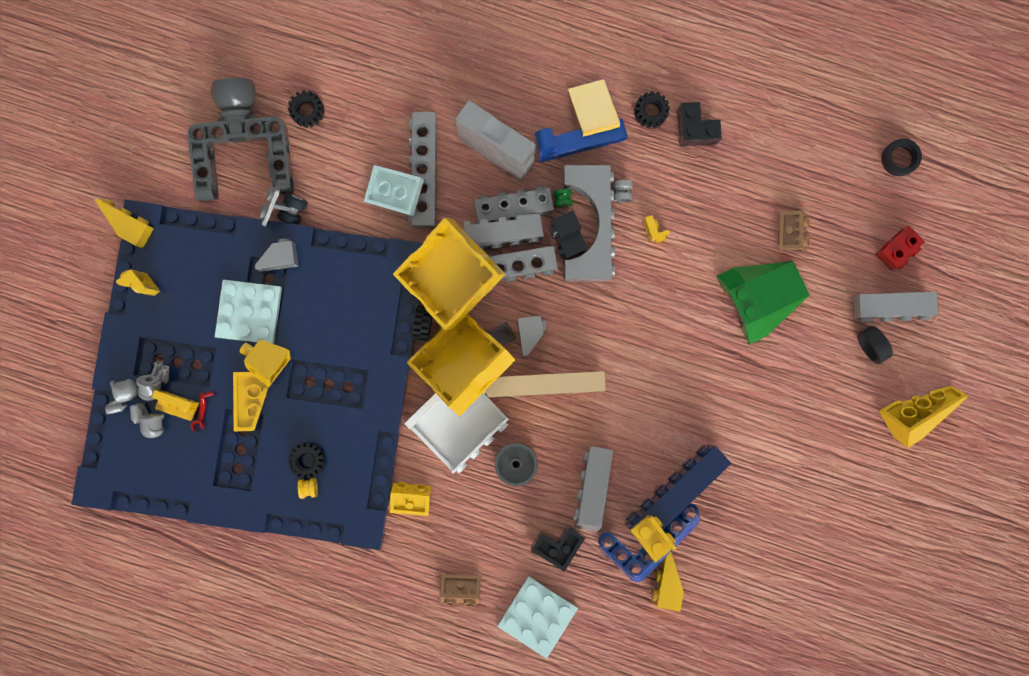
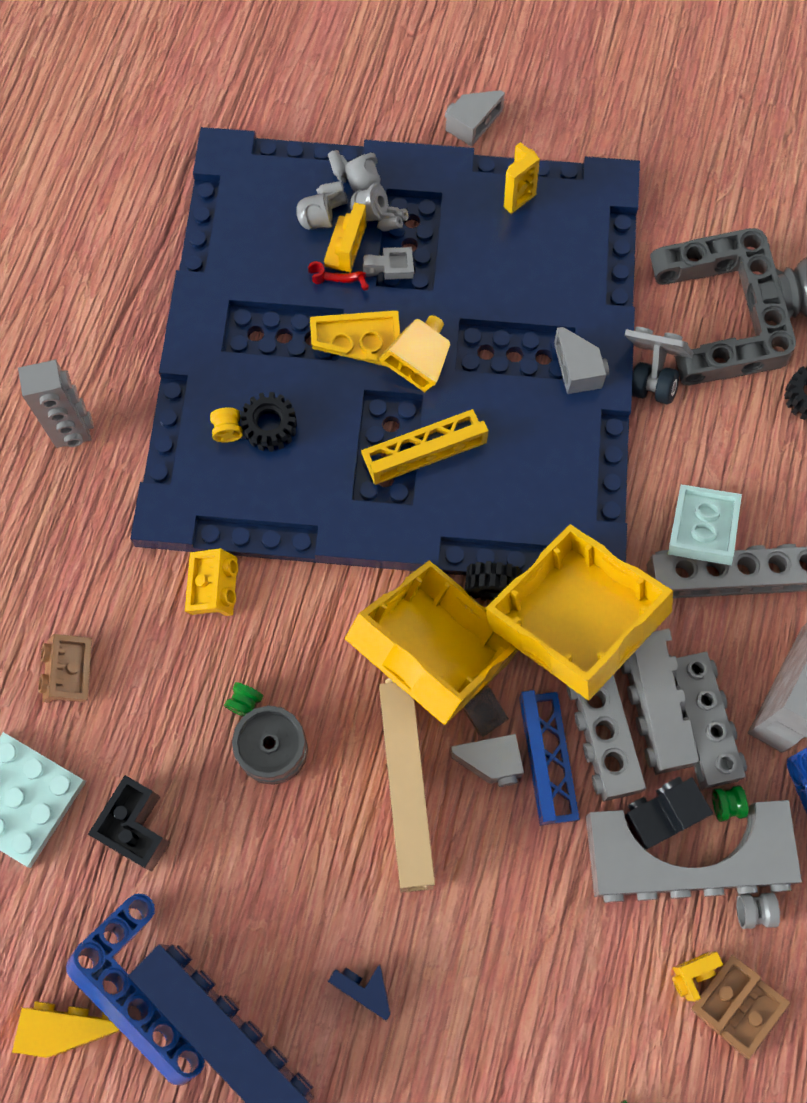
camera: 90 degrees right, 15 degrees down
(75, 311) = (473, 115): none -> light grey slope
(126, 227) = (601, 159): yellow slope -> none
(194, 372) = (395, 263): none -> light grey plate
(248, 311) = (491, 329): light aqua plate -> none
(289, 599) = (56, 403): none -> light grey brick
(334, 356) = (425, 451): none -> yellow fence
(456, 437) = (315, 657): white panel -> none
(486, 479) = (243, 699): none -> green wheel
(530, 306) = (537, 758): none -> blue fence
(593, 489) = (230, 881): light grey wedge -> none
(653, 538) = (139, 986): yellow bracket -> none
(658, 410) = (372, 996): none -> dark blue slope
(672, 207) = (740, 1007): none -> medium nougat slope

